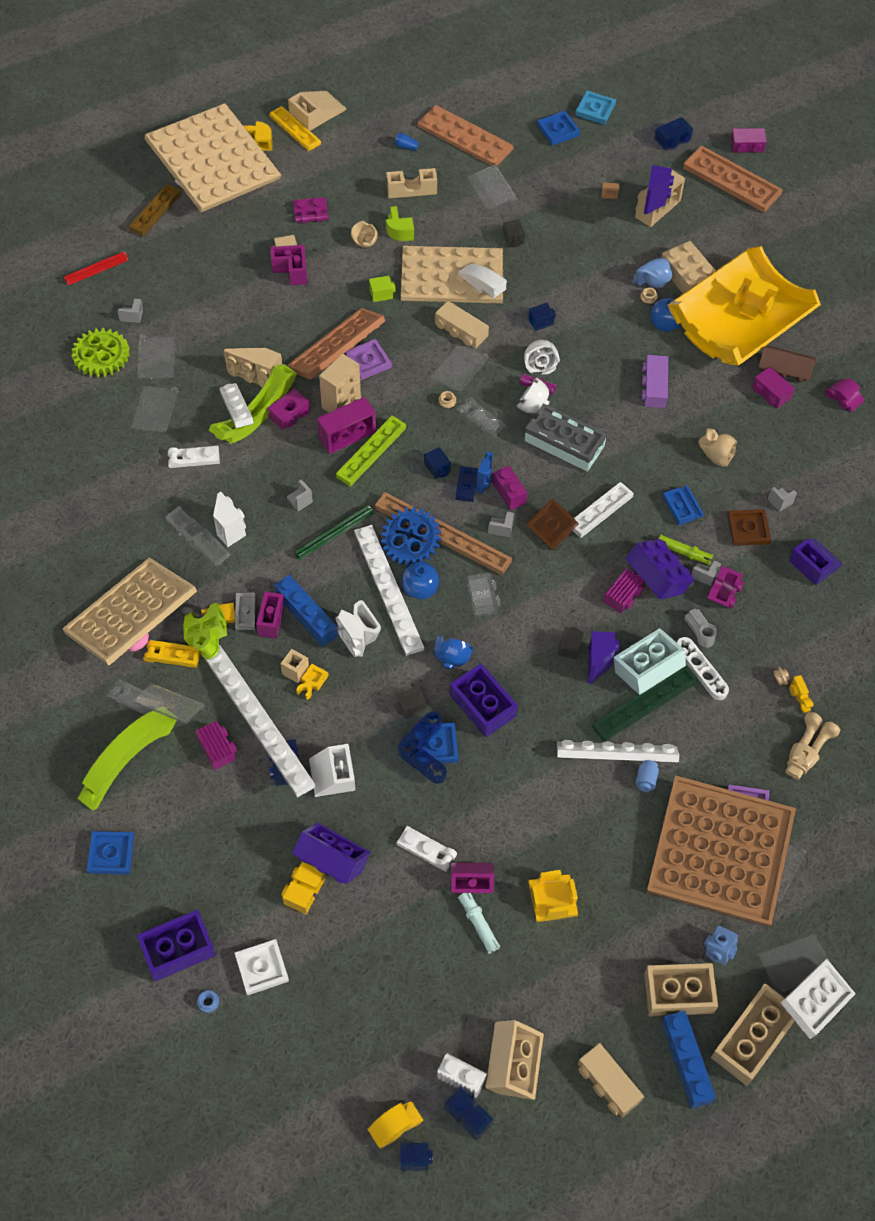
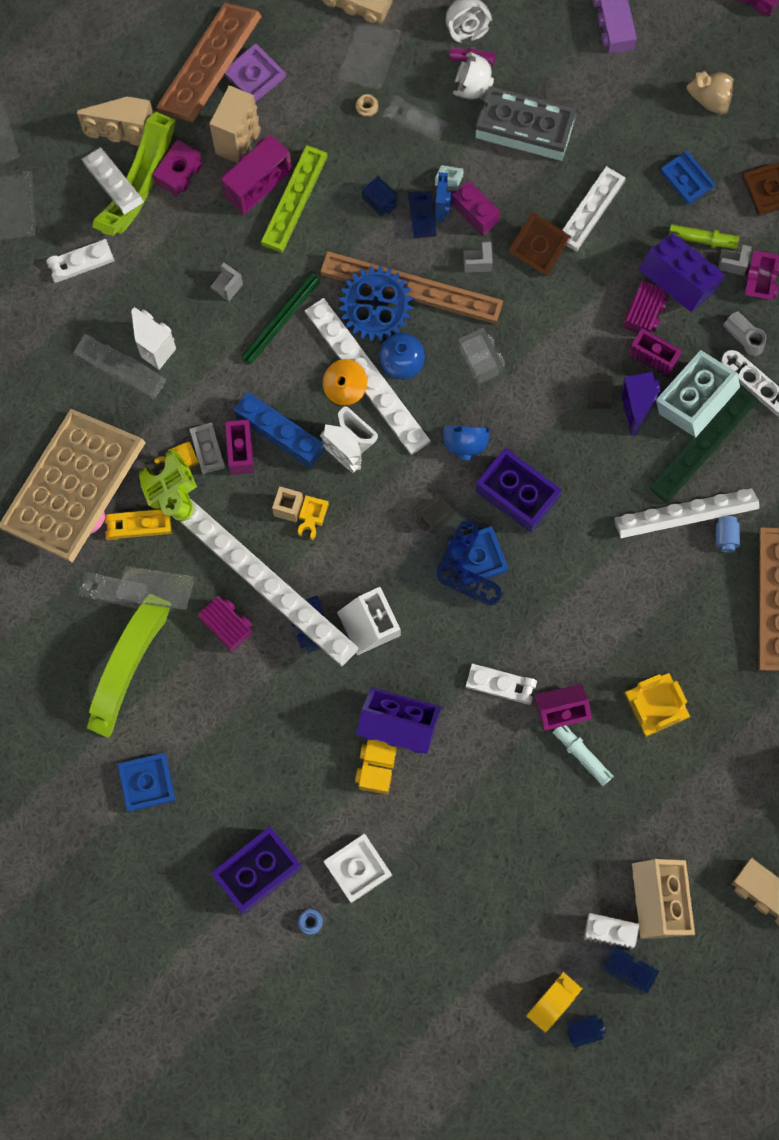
camera: 10 degrees left, 15 degrees up
(374, 593) = (354, 386): none -> light orange dish
(498, 462) = (454, 176): none -> light aqua plate
(623, 623) = (655, 352): none -> magenta brick

